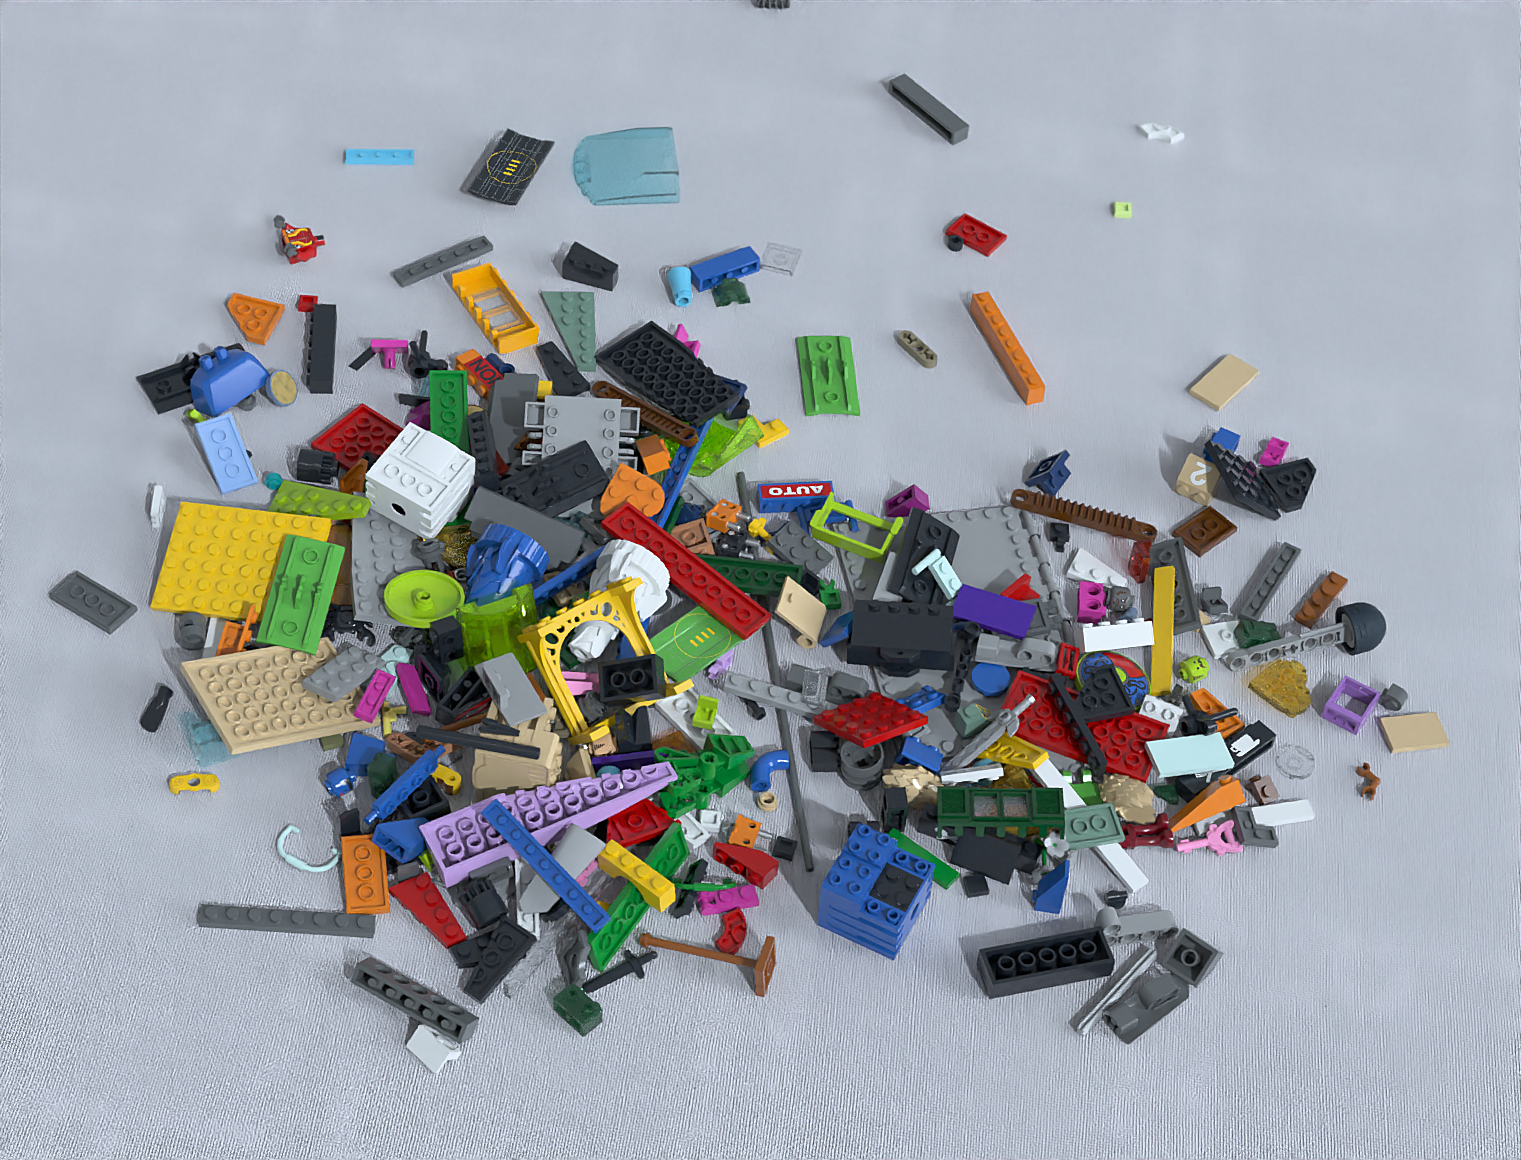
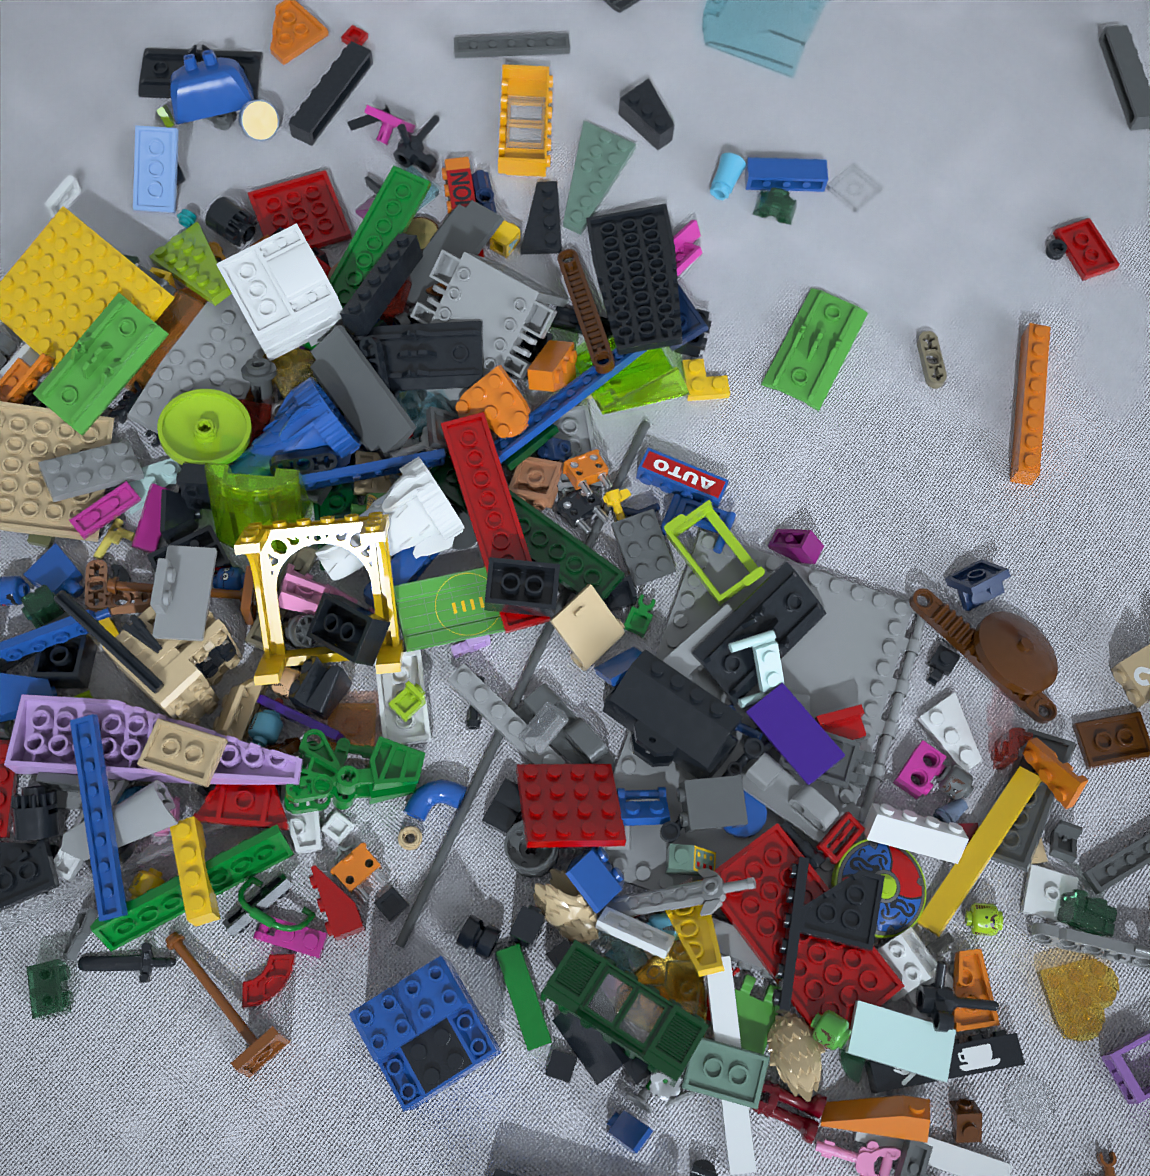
camera: 30 degrees right, 20 degrees up
(524, 577) = (319, 453): none -> black beam
(577, 798) = (182, 752): none -> tan tile
(741, 597) = (522, 587): none -> black brick
(968, 673) = (712, 803): none -> dark grey panel
(1105, 502) = (1015, 653): none -> reddish brown dish
(1140, 764) = (830, 1030): none -> bright green head
(1181, 555) = (1057, 776): none -> orange wing

